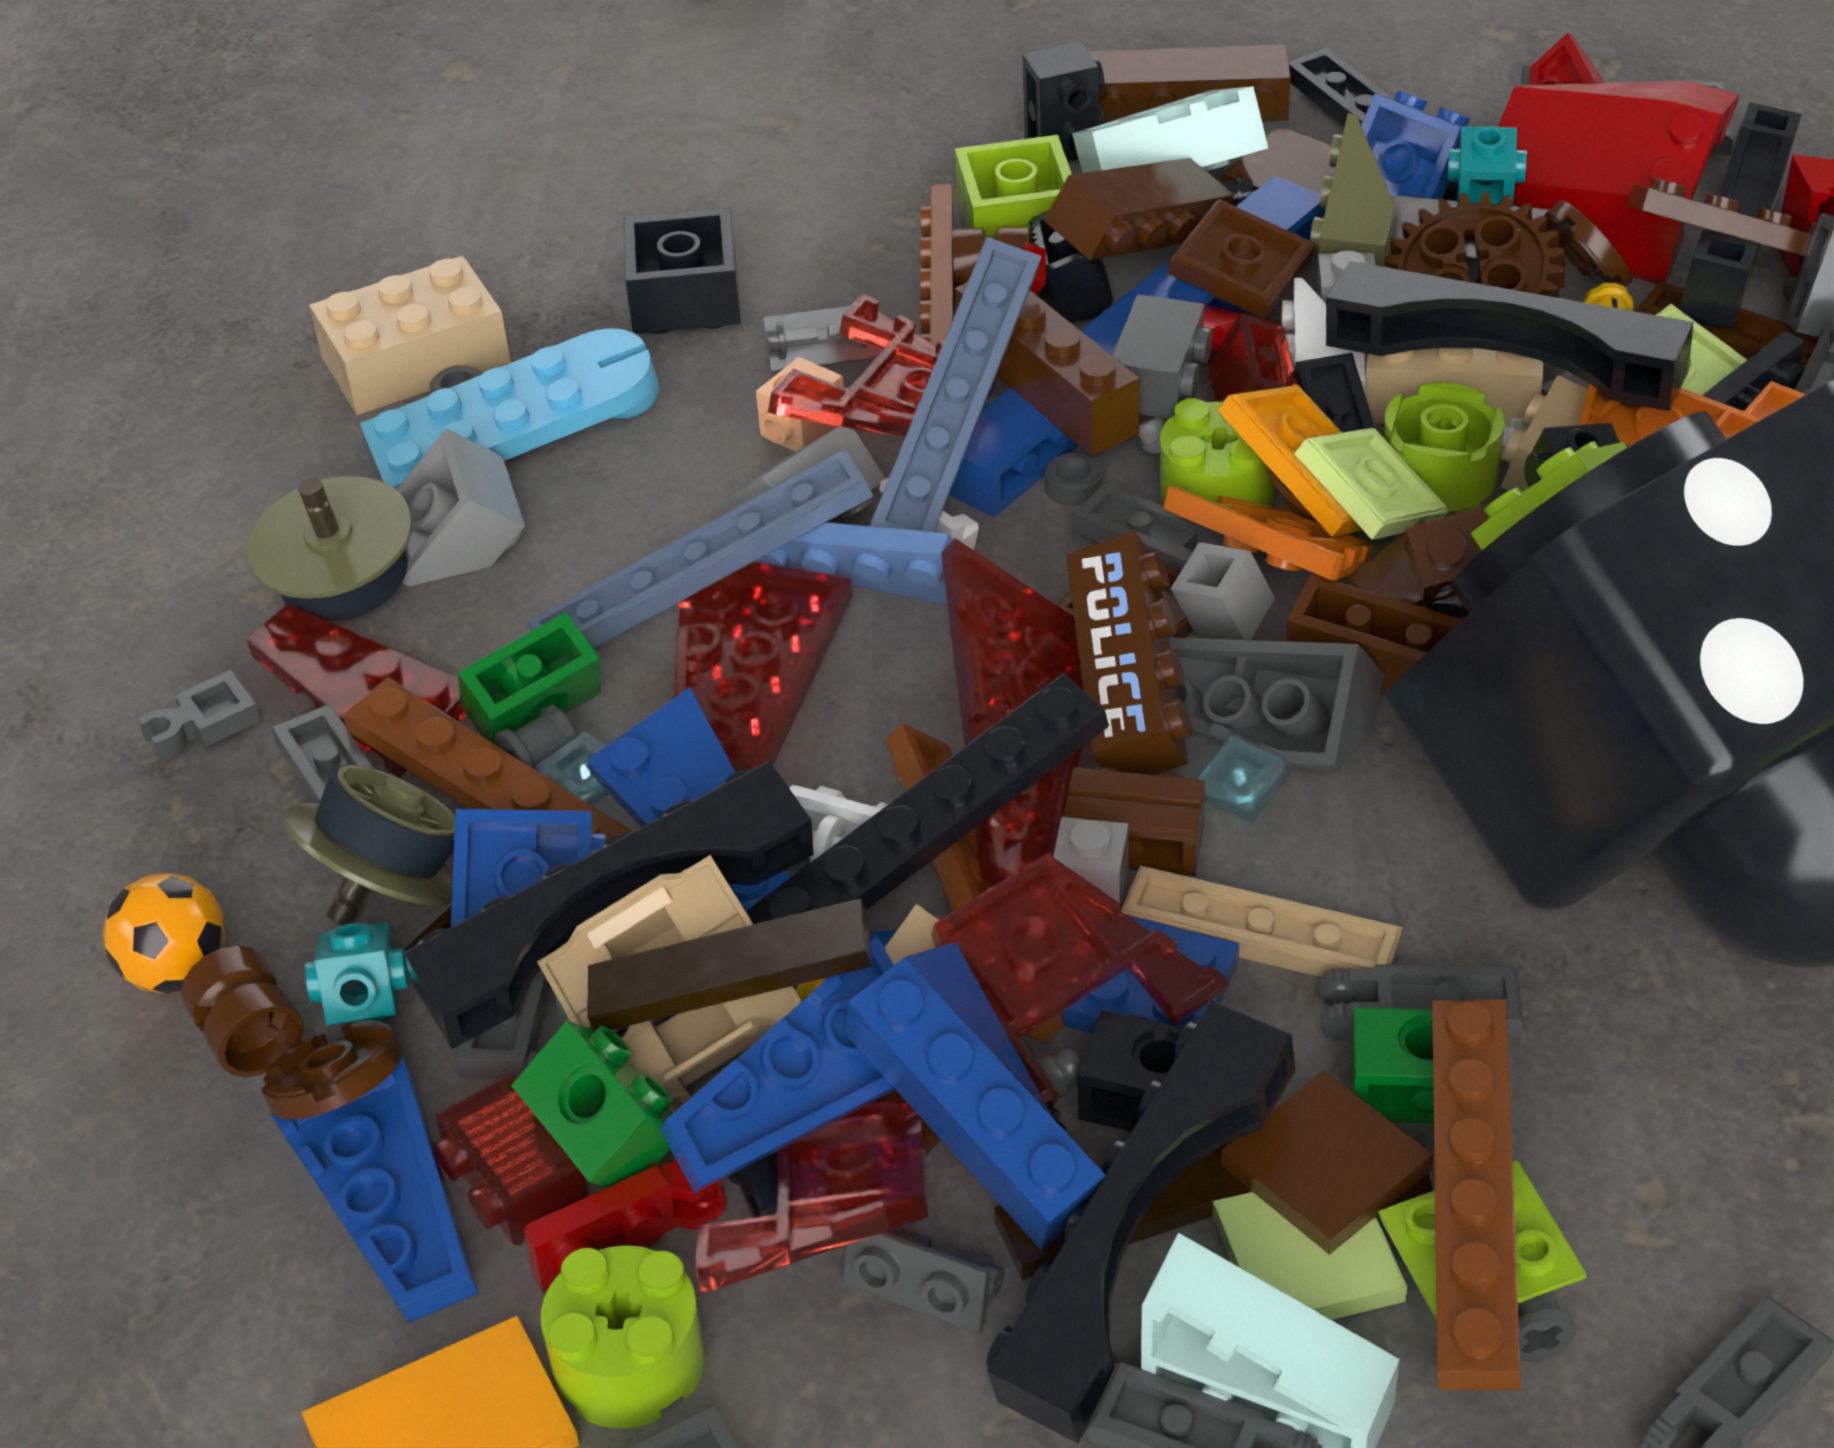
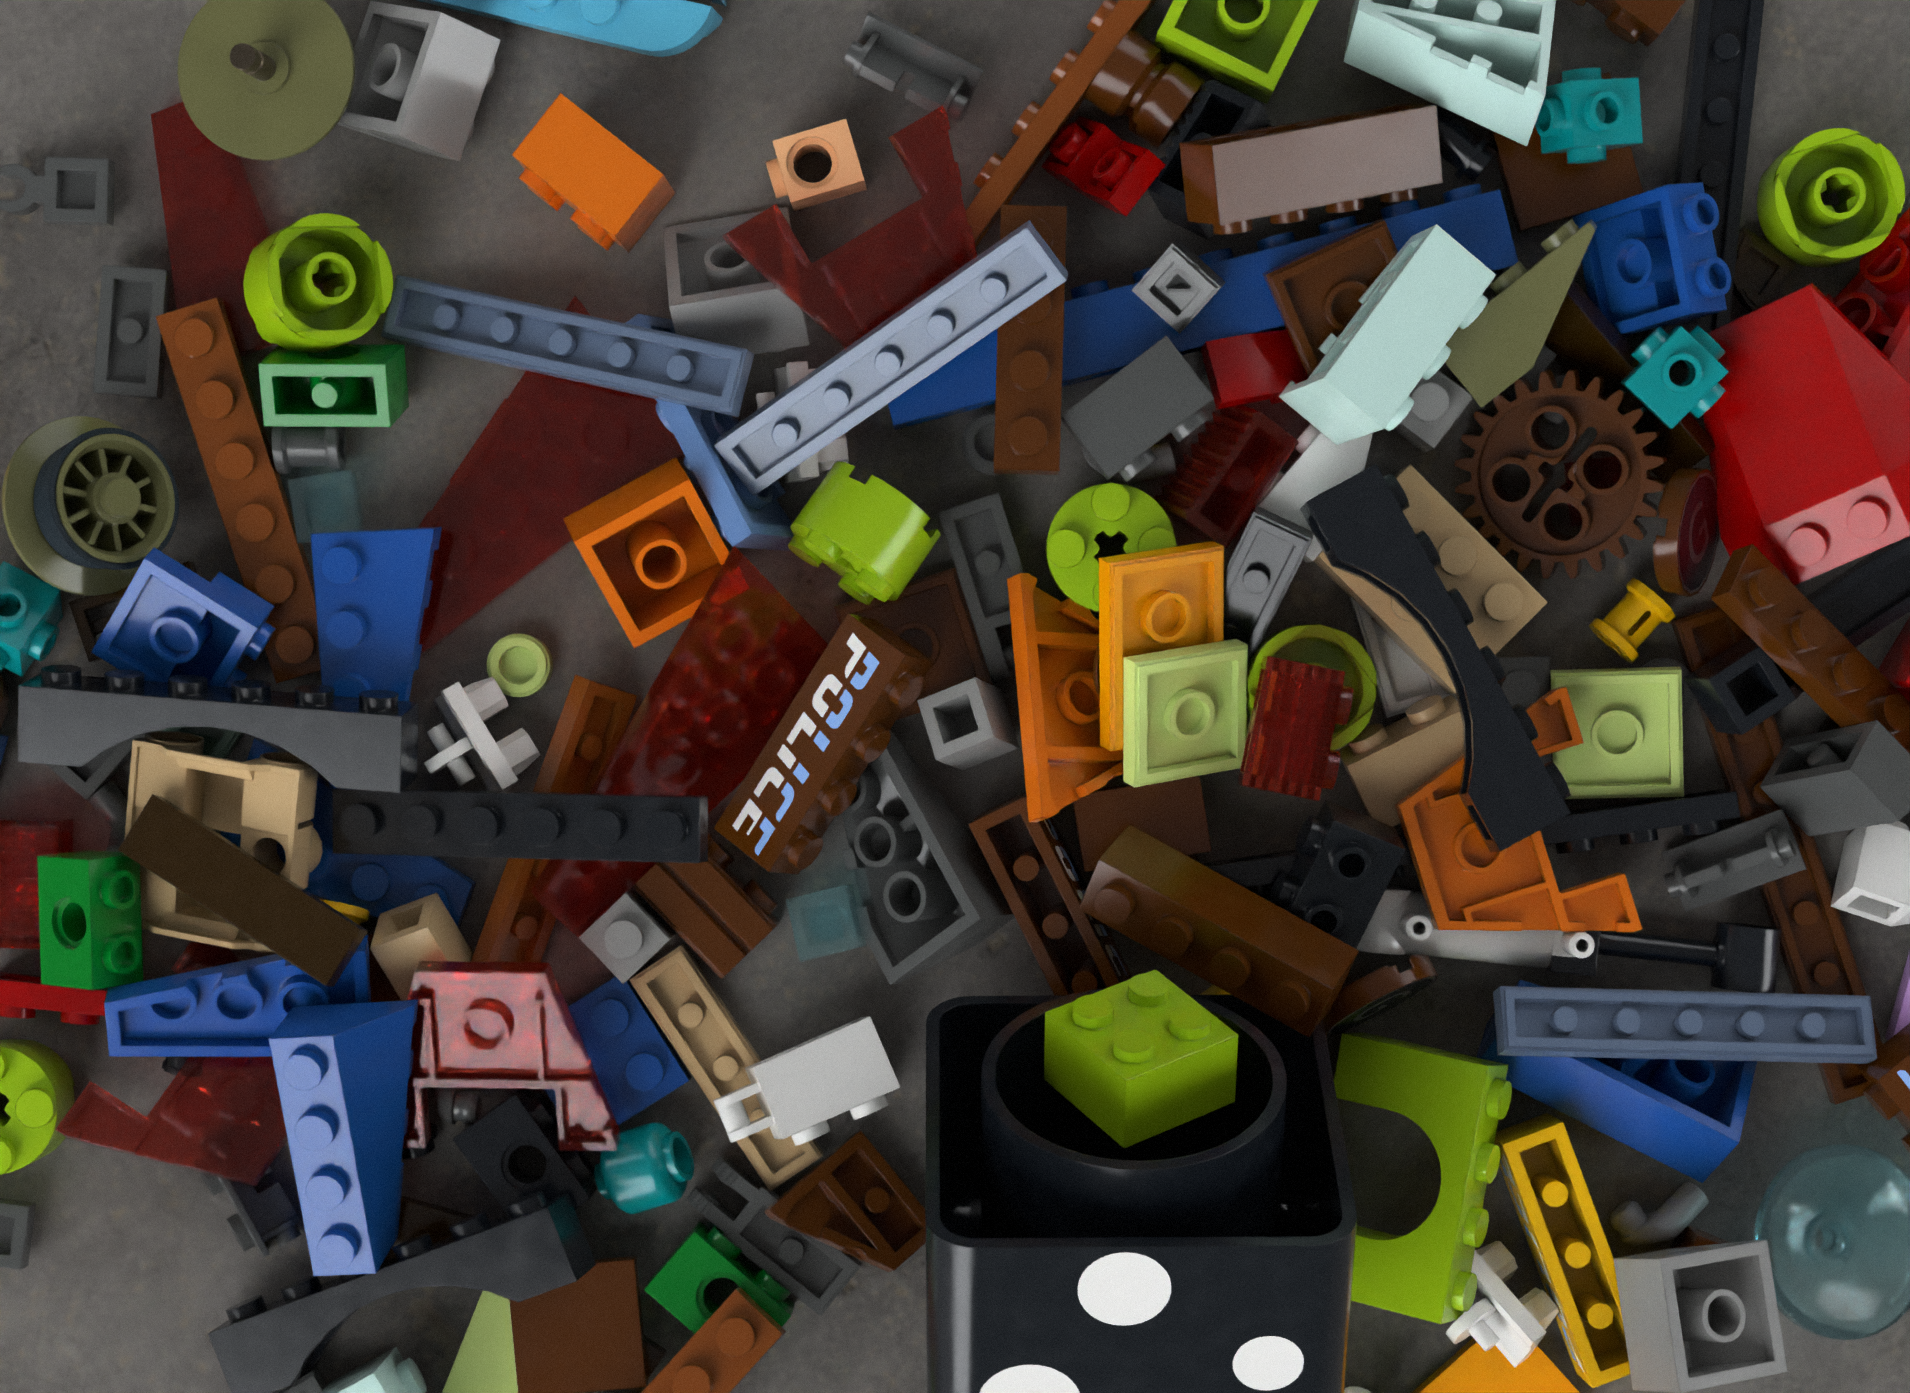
camera: 30 degrees right, 45 degrees up
(461, 620) = (323, 251): none -> lime brick
(637, 467) = (595, 173): none -> orange brick
(836, 773) = (520, 665): none -> yellowish green tile
(877, 626) = (650, 550): none -> orange brick
(1030, 521) = (863, 534): none -> lime brick
(1114, 294) = (1178, 286): none -> tile
(1274, 997) = (646, 1169): none -> teal head
(1292, 232) = (1393, 338): none -> light aqua wedge
(1294, 118) = (1589, 116): none -> teal brick
(1345, 861) = (812, 1084): none -> white brick
(1455, 421) = (1294, 728): none -> clear red brick
(1470, 930) = (855, 1206): none -> reddish brown wing
(1476, 79) = (1830, 162): none -> lime brick

